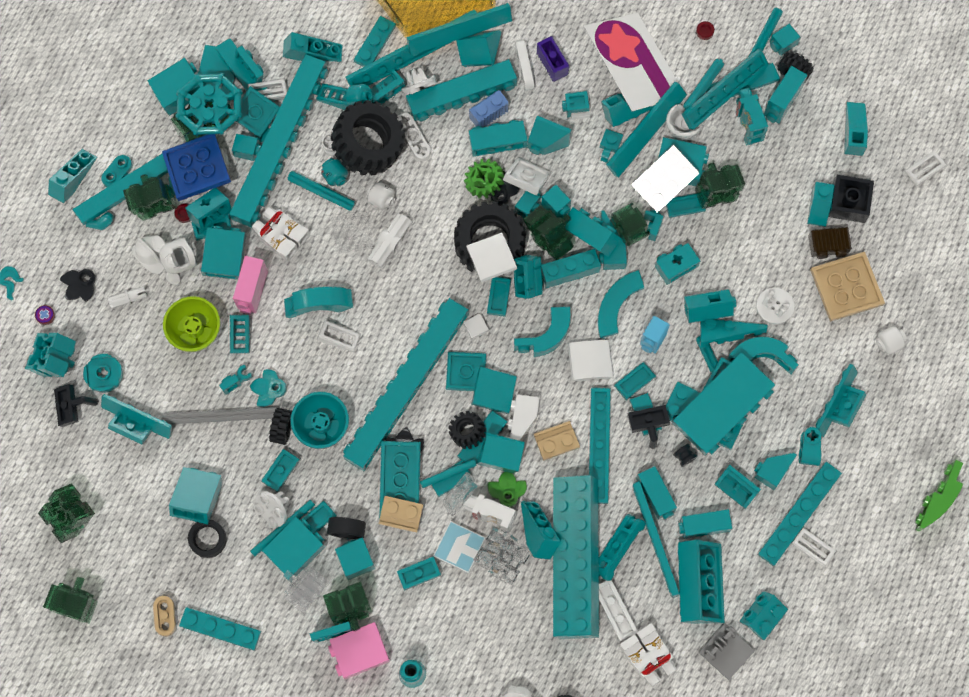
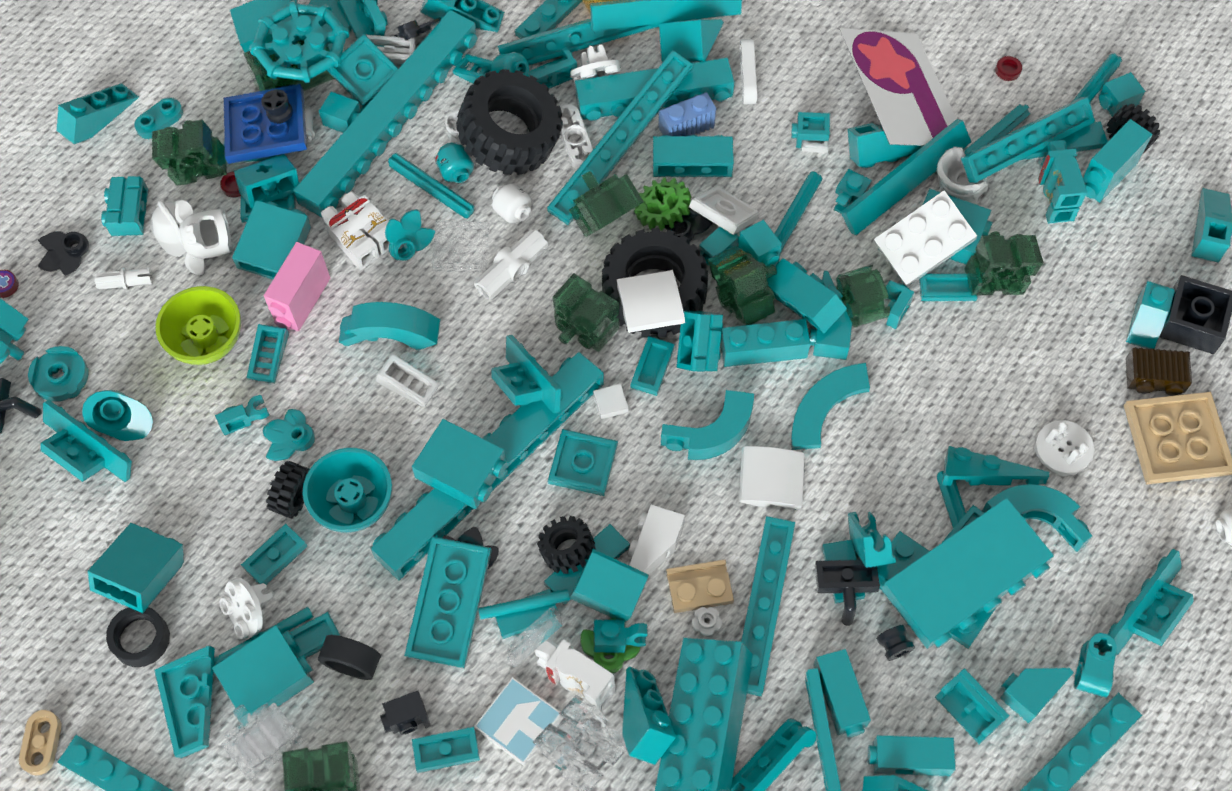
camera: 10 degrees right, 10 degrees down
(102, 222) = (124, 171): teal arm -> none
(114, 193) = (139, 145): teal tile -> none
(114, 244) = (125, 206): none -> teal brick
(153, 395) = (117, 415): none -> teal piece
(199, 153) = (277, 106): none -> black wheel
(219, 415) = (202, 461): light grey axle -> none
(250, 572) = (187, 700): none -> teal wing
(281, 74) = (412, 29): none -> black plate
(315, 233) = (409, 233): none -> teal plate
(355, 558) = (351, 707): teal head -> none
(388, 556) = (404, 714): none -> black brick
(389, 391) = (460, 464): none -> teal brick
(401, 514) = (438, 652): tan plate -> none
(418, 324) = (525, 379): none -> teal bracket
(446, 133) = (623, 132): none -> teal tile
(446, 189) = (604, 202): none -> clear green brick
(447, 269) = (585, 313): none -> clear green brick
(494, 390) = (618, 495): teal tile -> none
(509, 484) = (613, 637): none -> teal plate
(548, 137) = (764, 162): teal slope -> none
(552, 59) = (788, 67): dark purple brick -> none
(565, 467) = (710, 628): none -> white plate
(575, 165) = (798, 207): none -> teal axle
(634, 381) = (832, 519): teal tile -> none
(654, 335) = (874, 454): medium azure brick -> none
(659, 394) = (868, 542): none -> teal hinge
(670, 271) = (924, 362): teal brick -> none
(709, 306) = (964, 429): teal brick -> none

